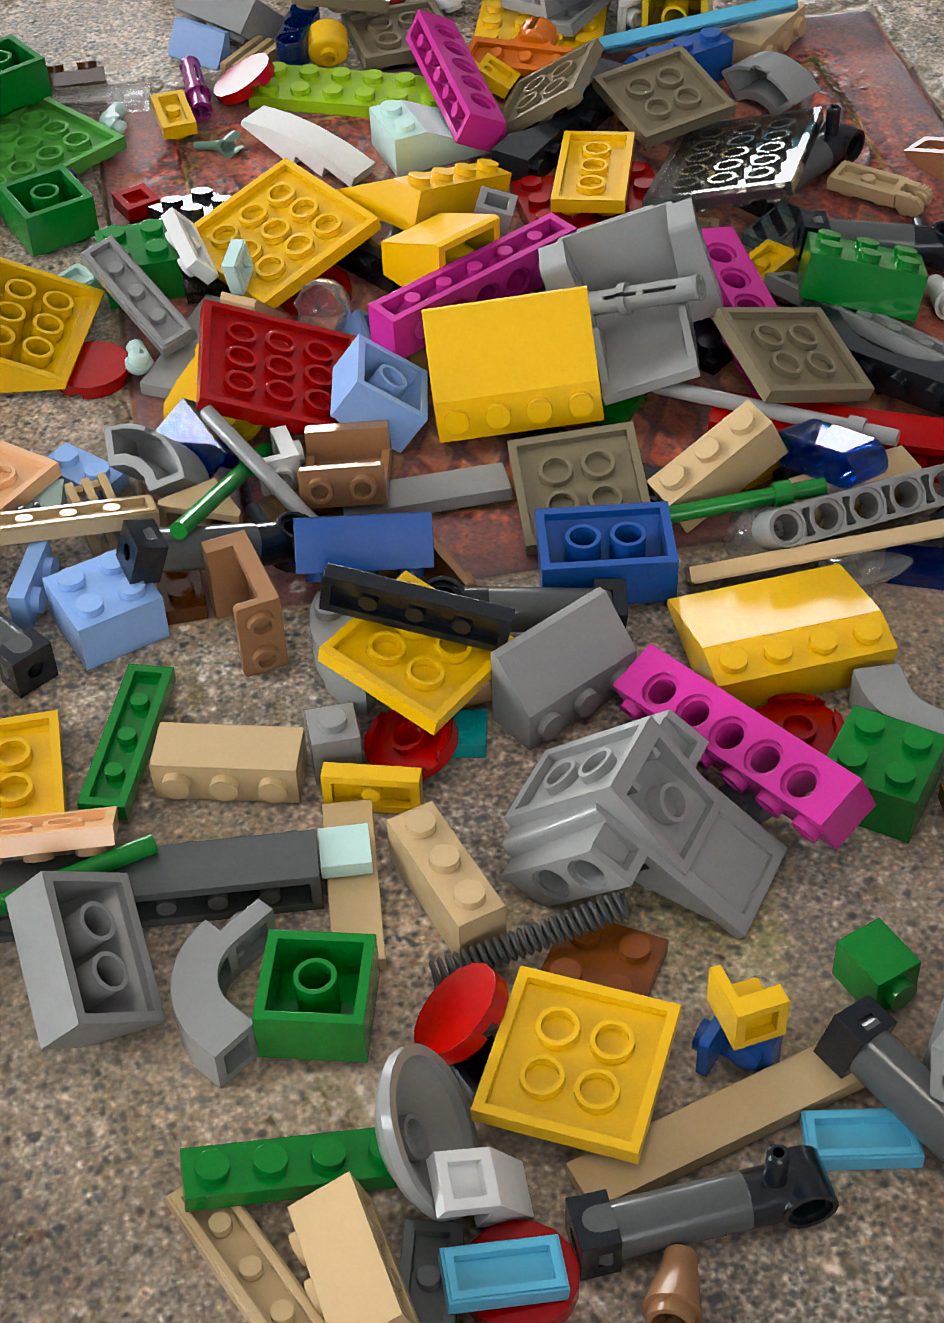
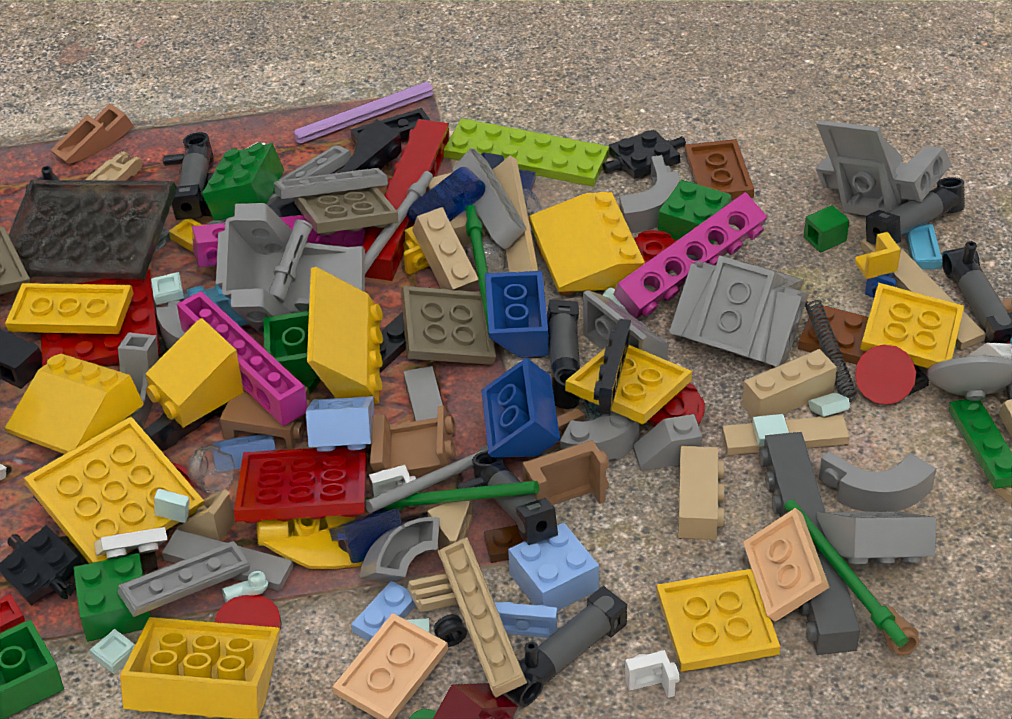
camera: 90 degrees left, 0 degrees up
(128, 739) = (677, 548): green plate -> none
(316, 996) = (881, 431): green brick -> none
(389, 787) = (714, 414): yellow plate -> none
(409, 939) = (829, 404): none -> light aqua tile
(849, 339) = (330, 183): none -> light grey tile

